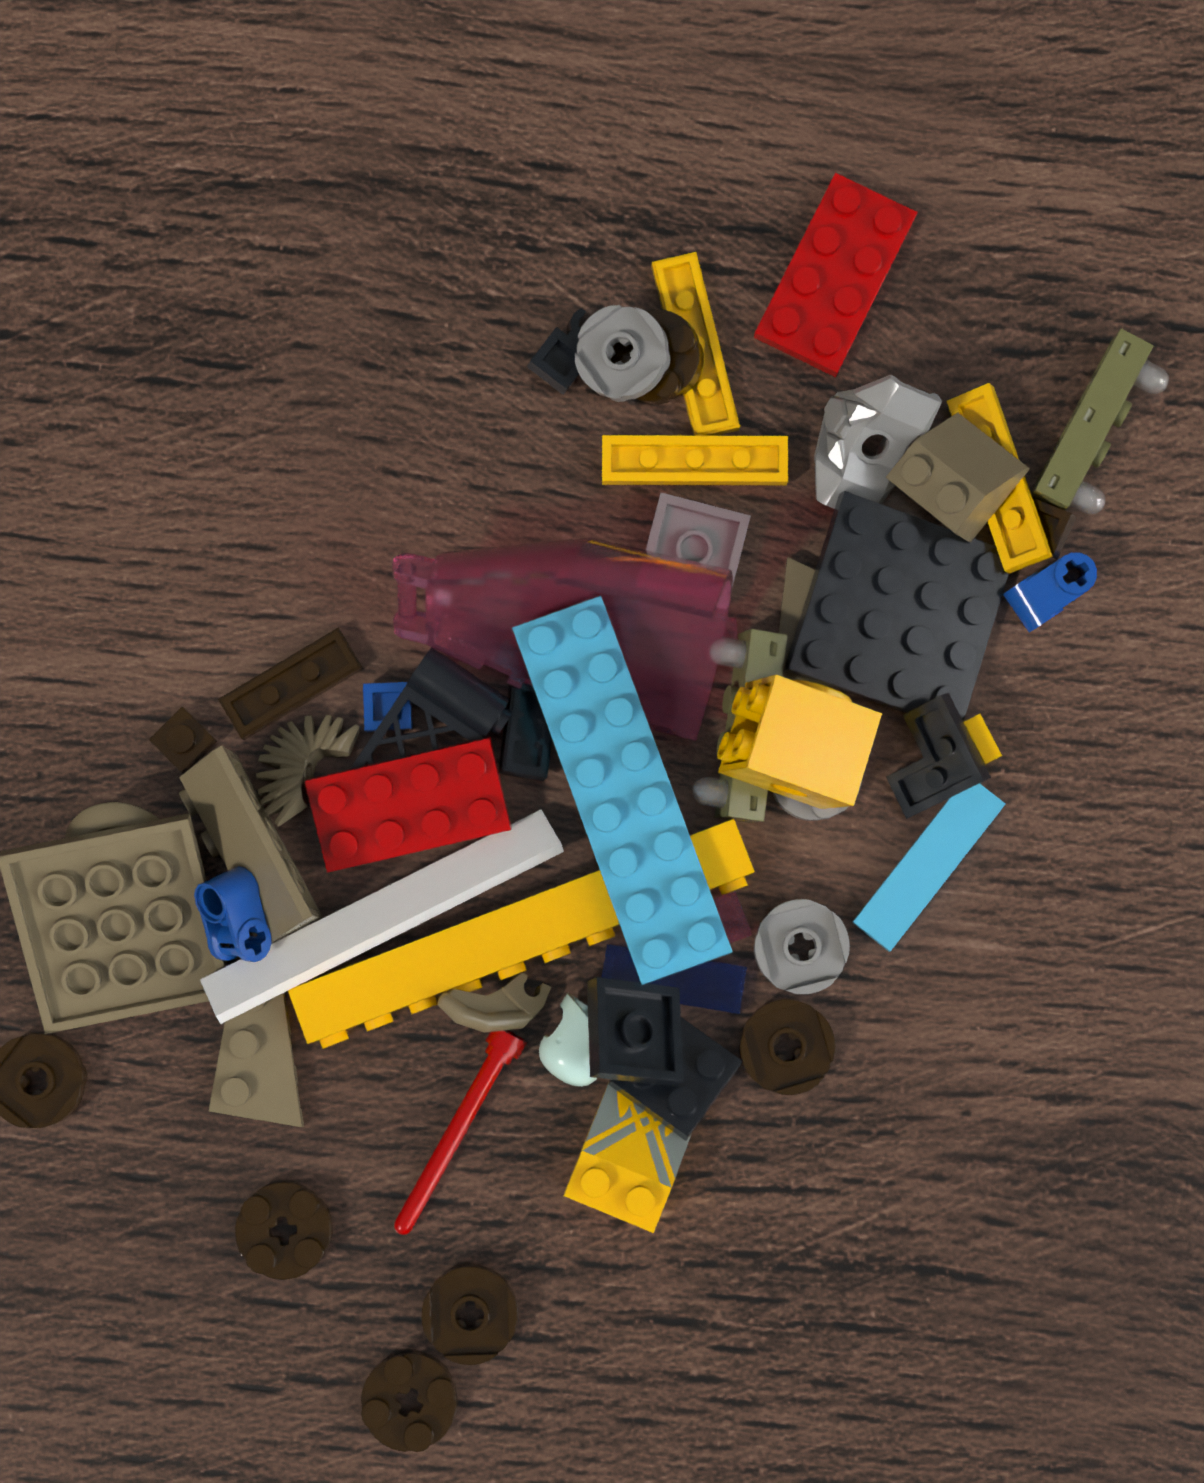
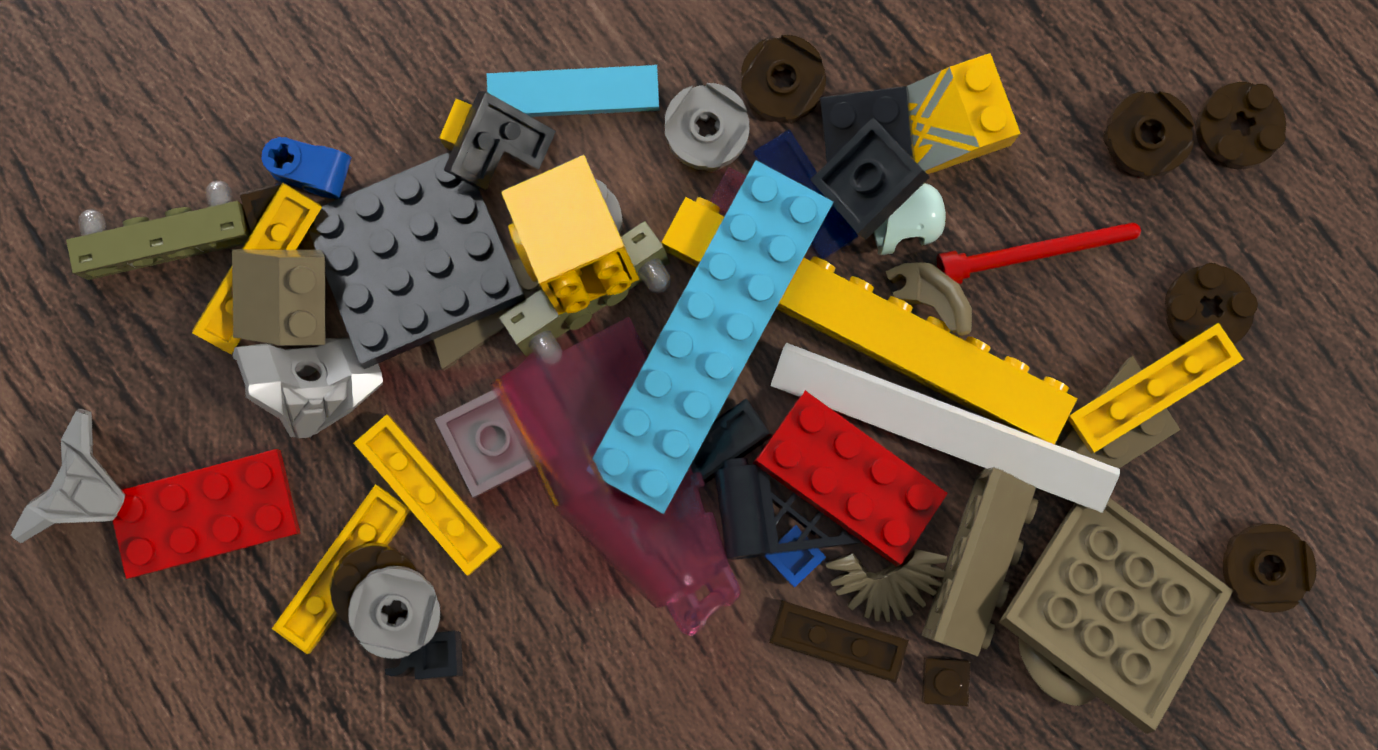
camera: 130 degrees left, 0 degrees up
(230, 911) = (1039, 526): blue piece -> none
(258, 1116) = (1155, 388): none -> yellow plate
(935, 191) = (80, 489): none -> light grey piece

